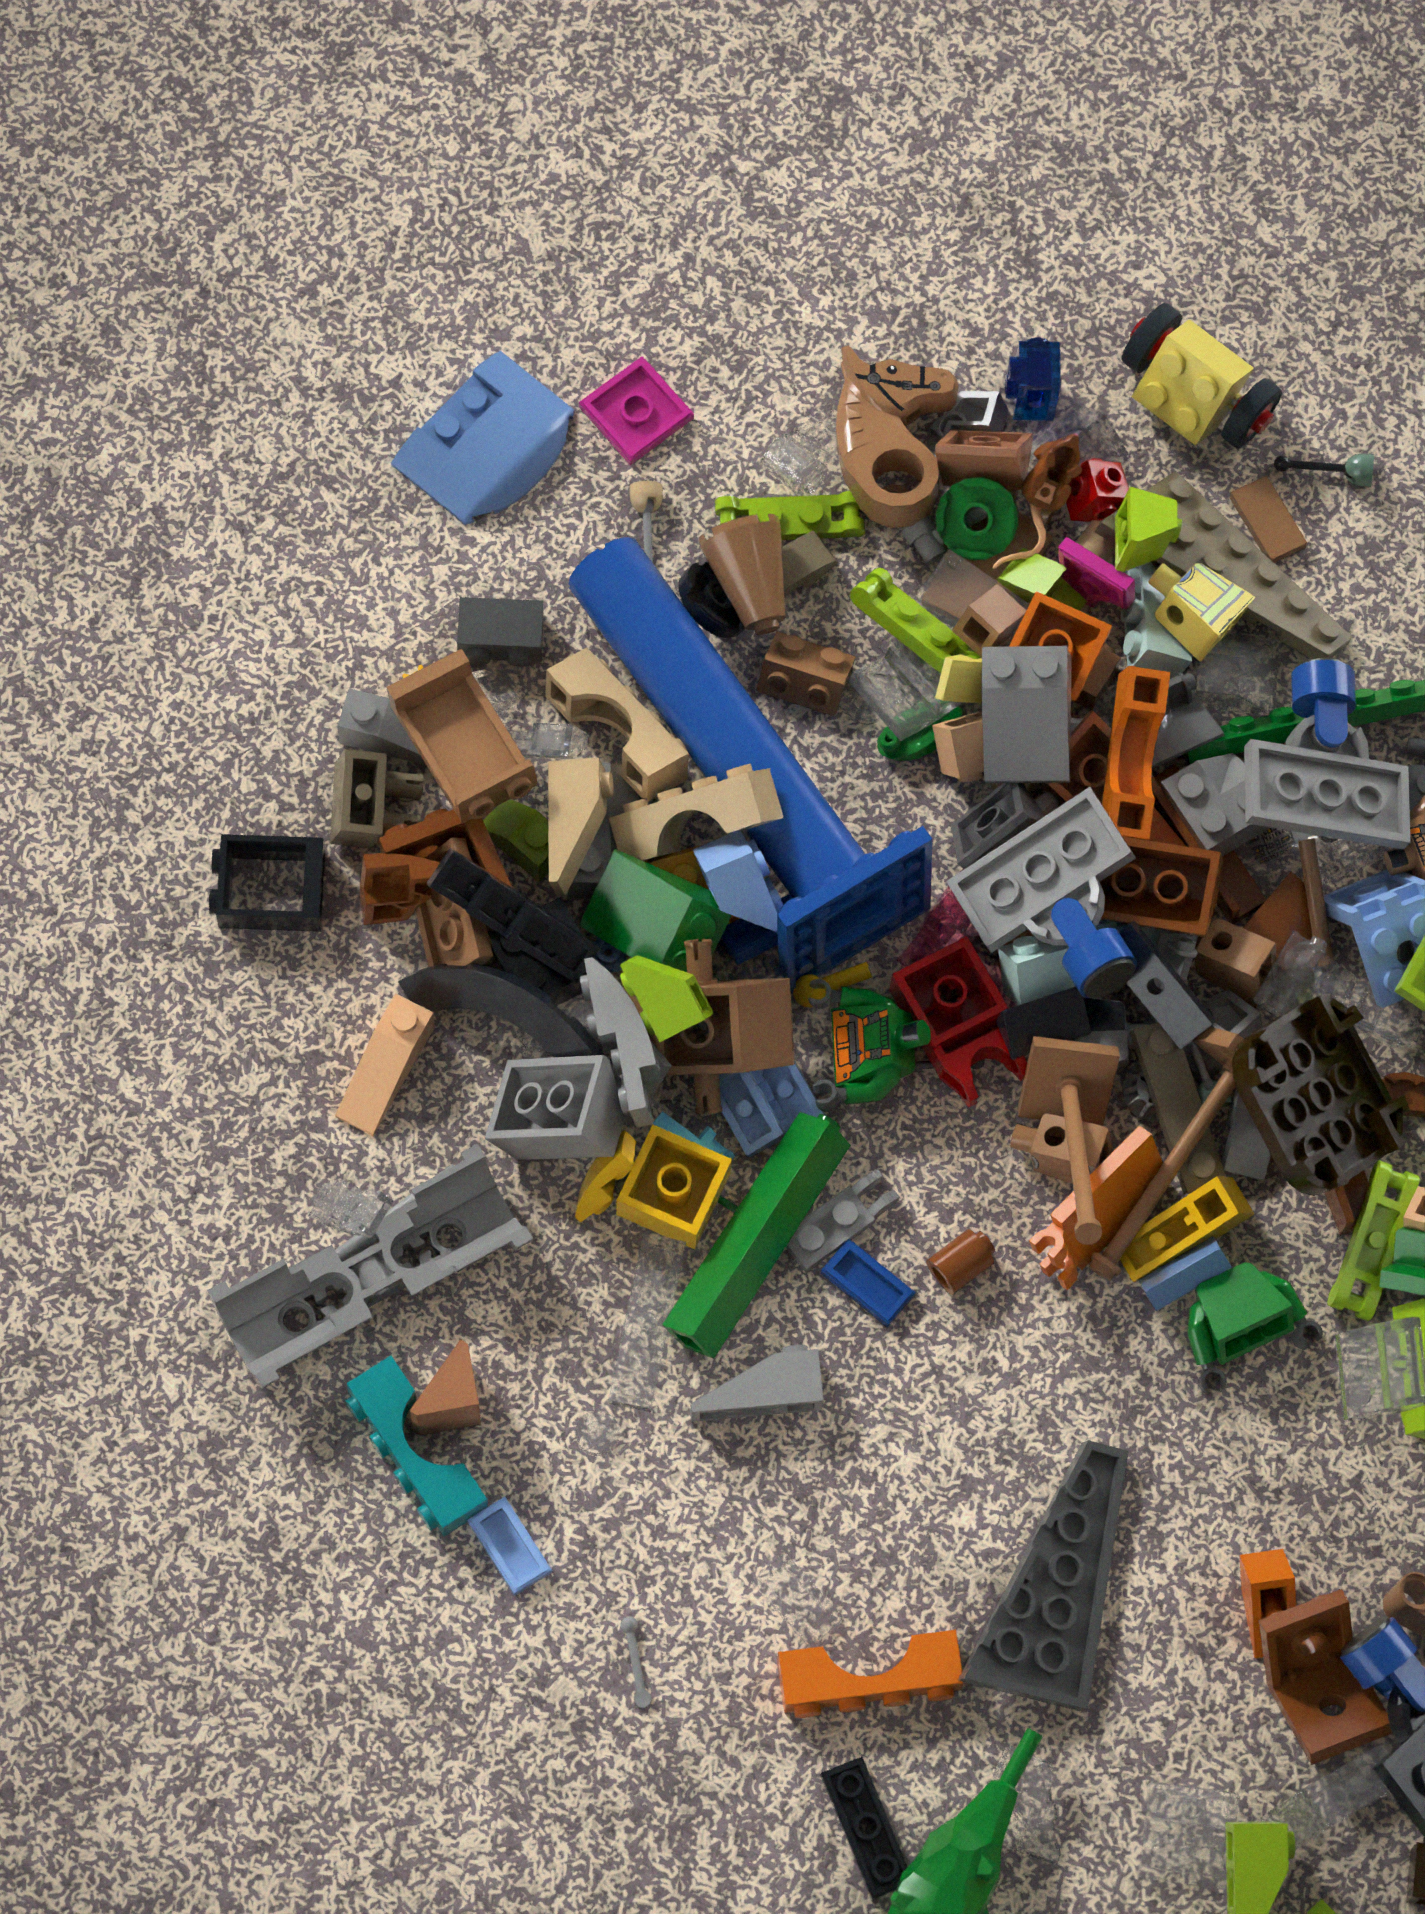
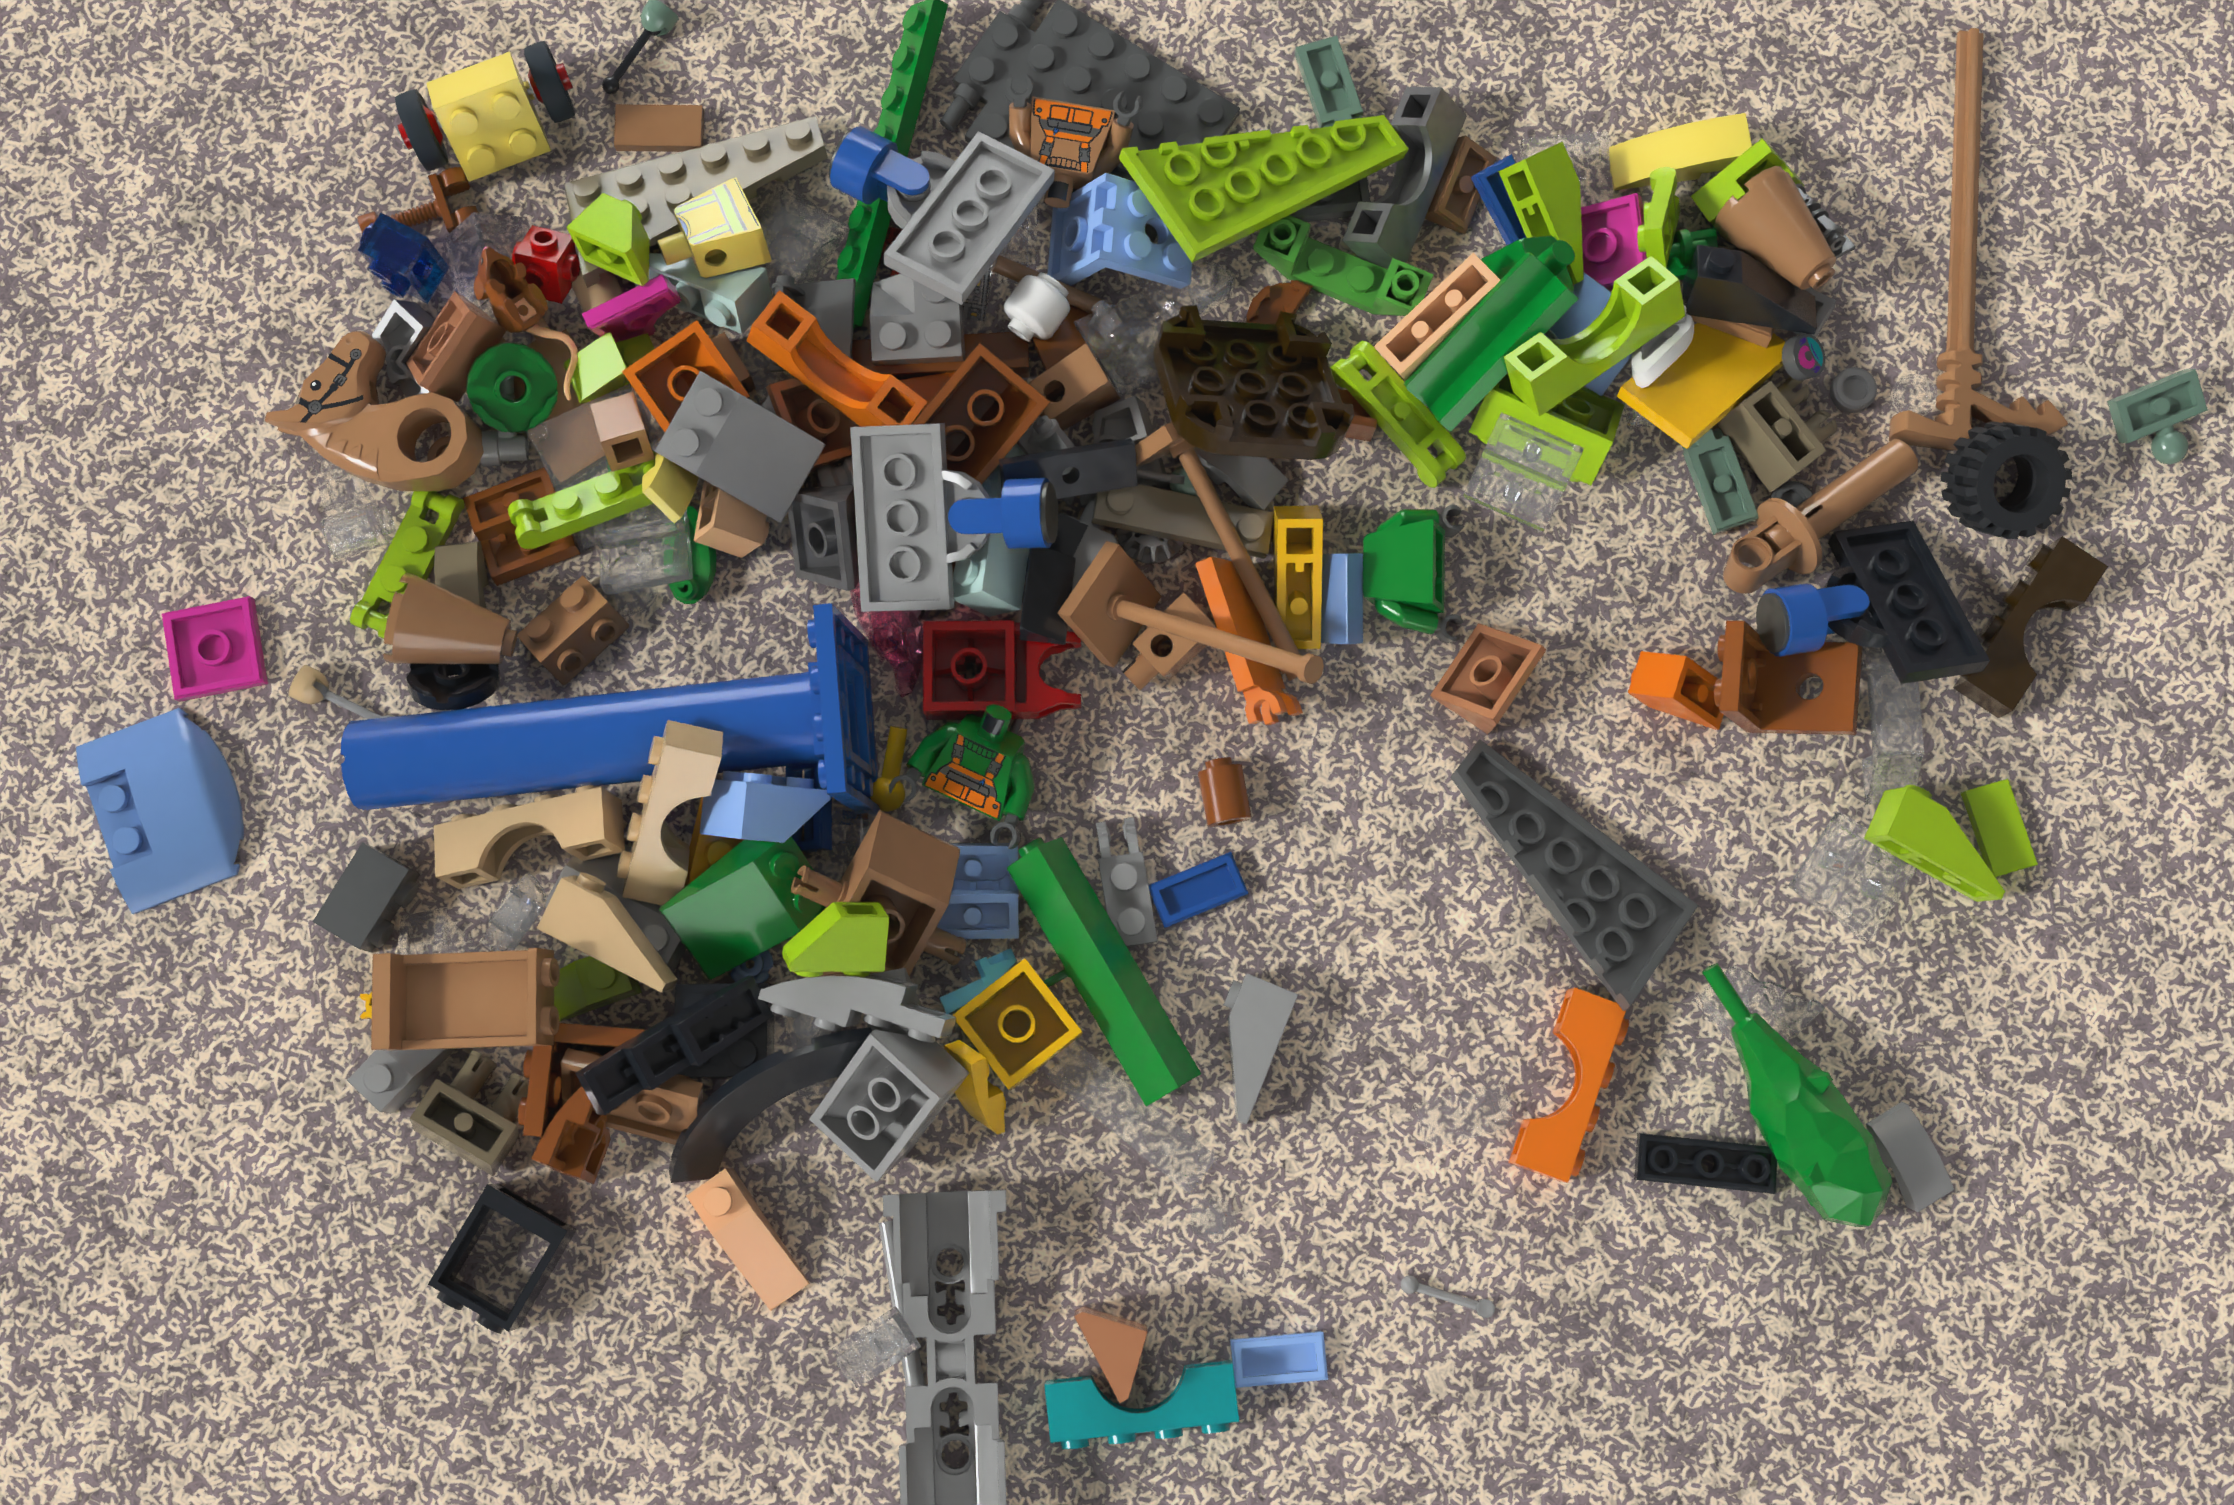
camera: 60 degrees left, 10 degrees up
(854, 565) = (497, 534): none -> dark orange slope
(1120, 380) = (447, 183): none -> dark orange bar
(1187, 1433) = (1487, 675): none -> nougat slope
(1286, 891) = (1037, 307): none -> white head

